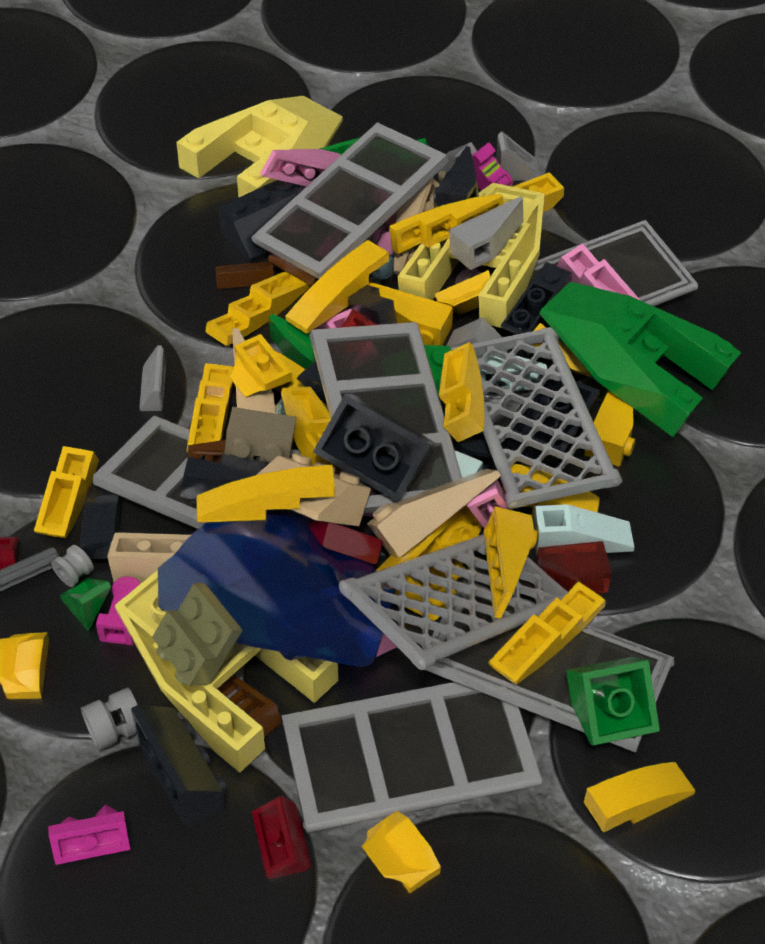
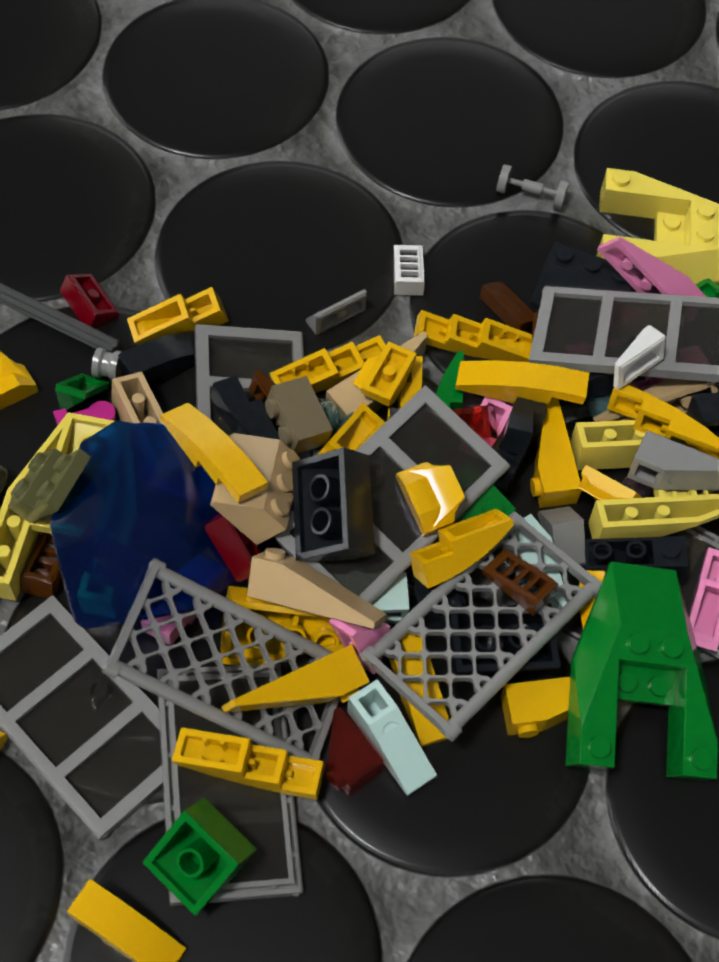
camera: 55 degrees right, 10 degrees up
(121, 211) = (532, 186): none -> light grey wheel
(165, 327) = (408, 285): none -> white slope
(383, 195) = (639, 356): none -> white slope
(409, 380) = (431, 495): none -> yellow slope
(534, 358) = (530, 602): none -> reddish brown slope

